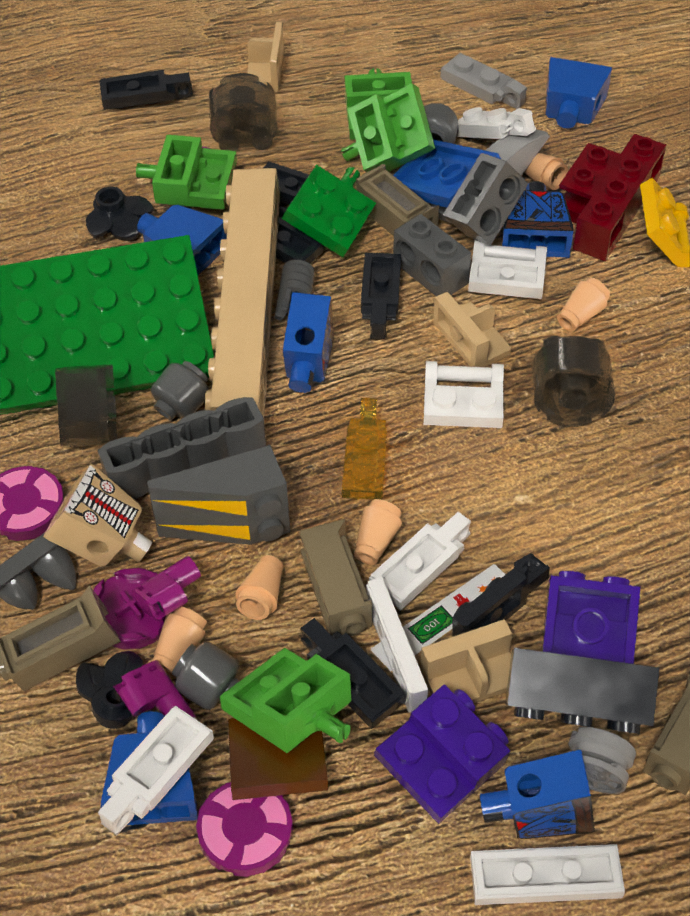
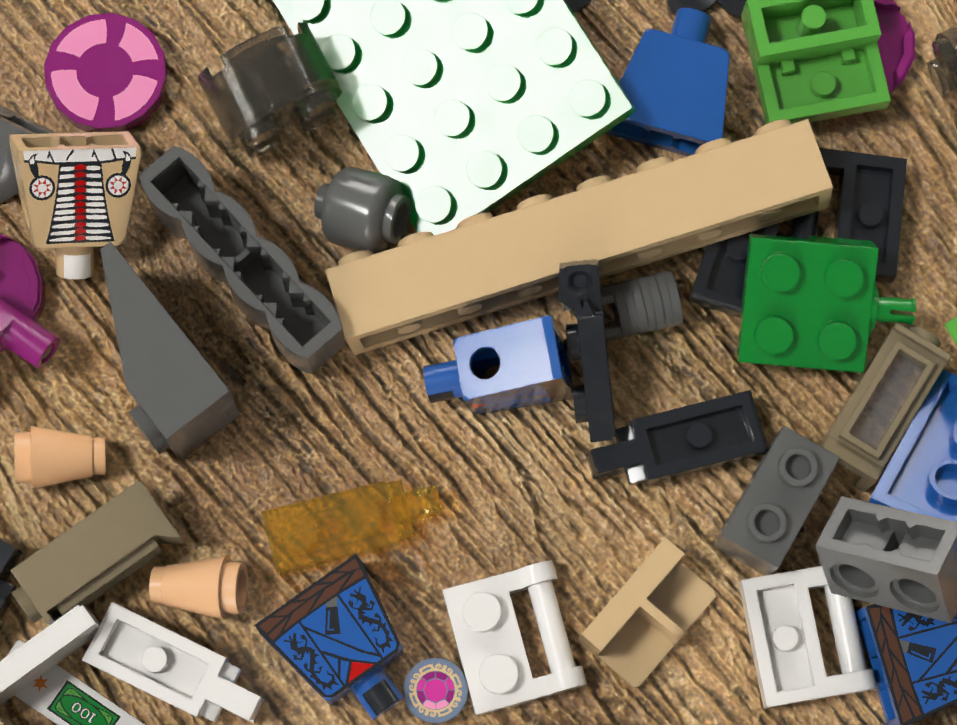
camera: 65 degrees right, 25 degrees up
(346, 310) = (587, 343): none -> black hinge
(435, 468) = (339, 638): none -> torso
(482, 437) = (435, 690): none -> tile

